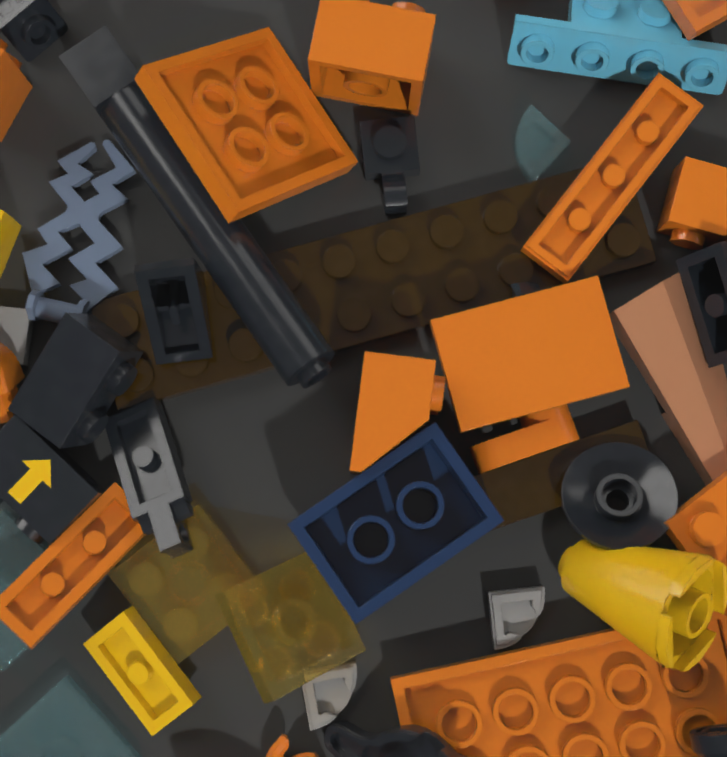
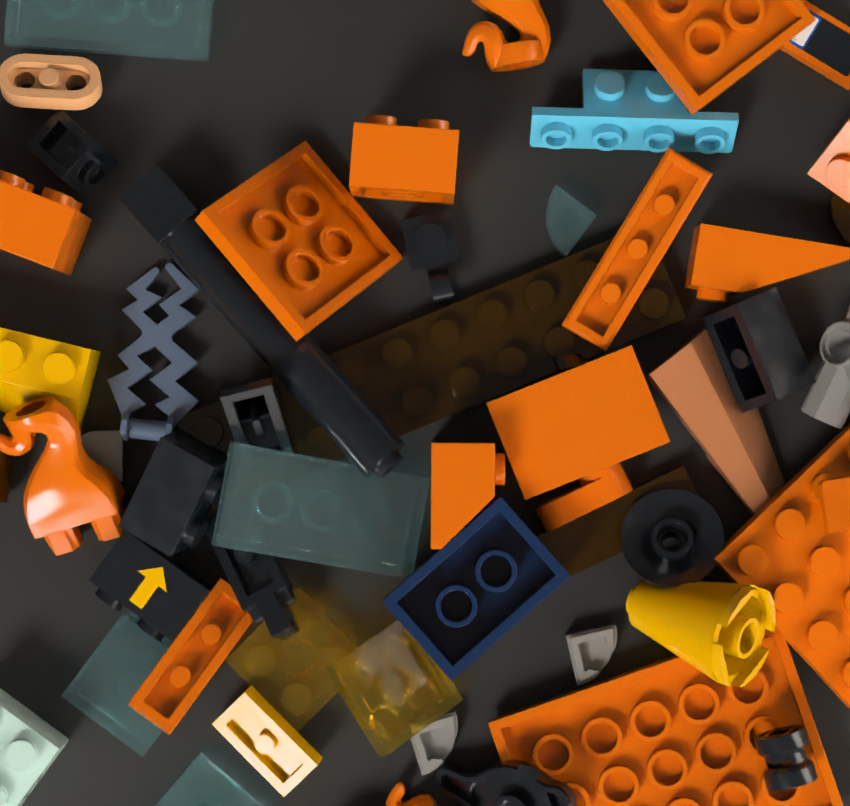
camera: 10 degrees left, 5 degrees up
(231, 418) = (319, 511): none -> clear light blue tile

